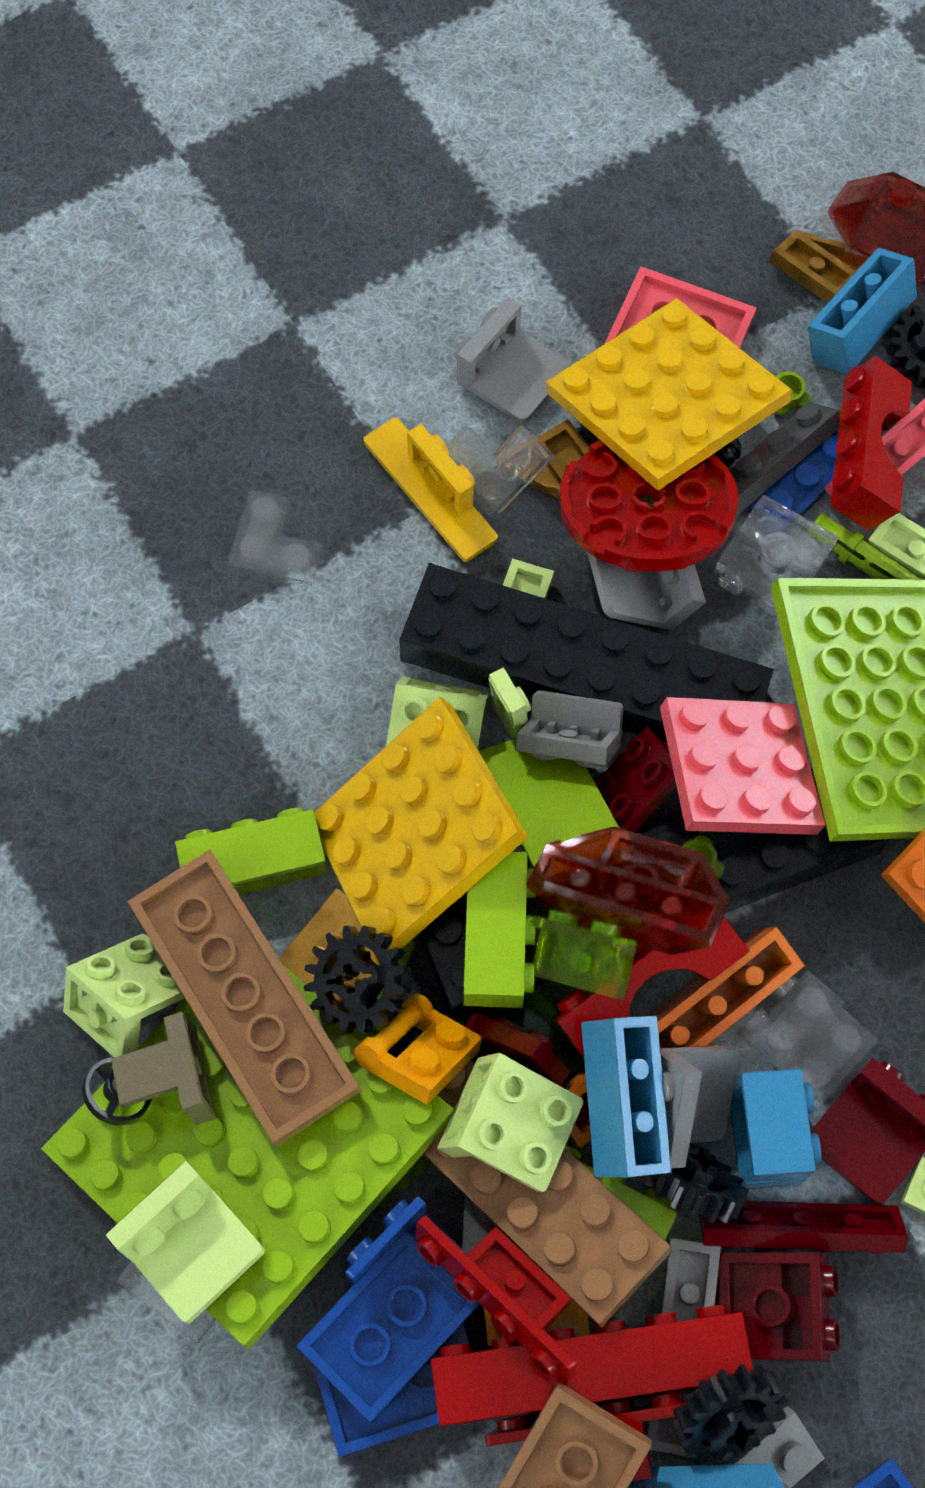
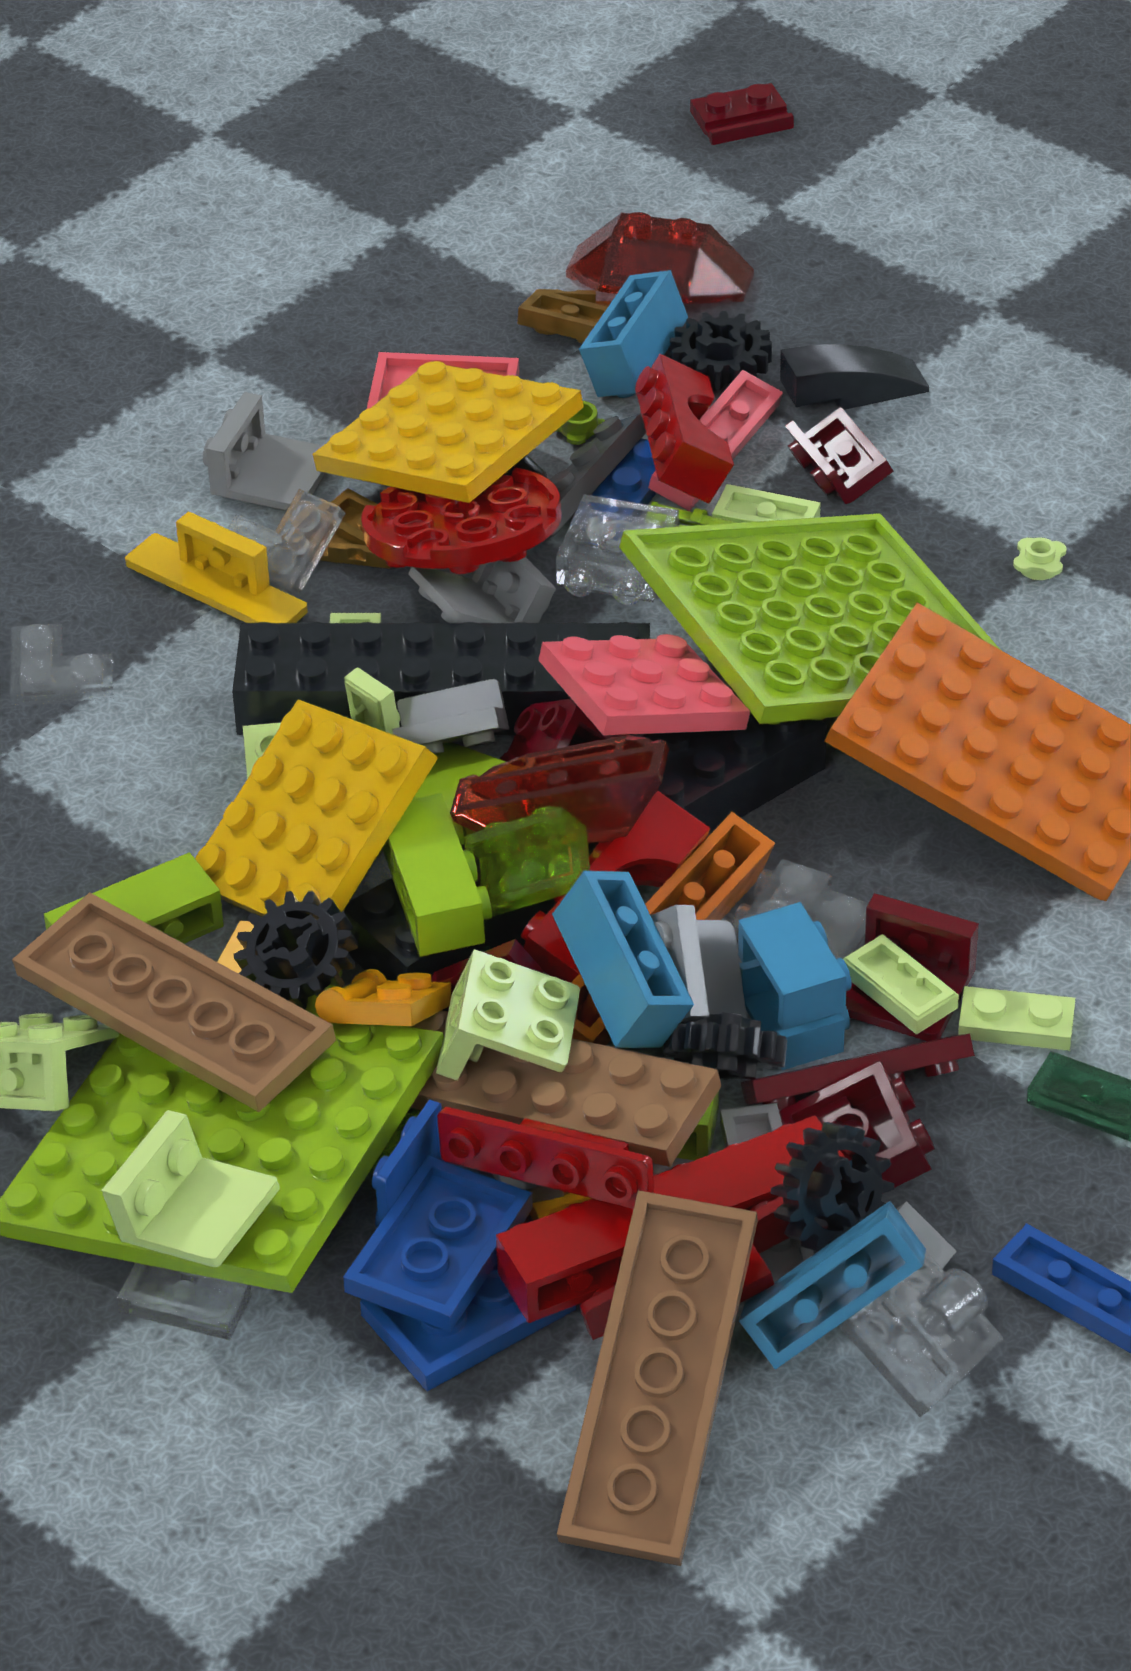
camera: 15 degrees left, 25 degrees down
(155, 1072) = (93, 1083): dark tan piece -> none
(865, 1149) = (900, 984): none -> yellowish green plate

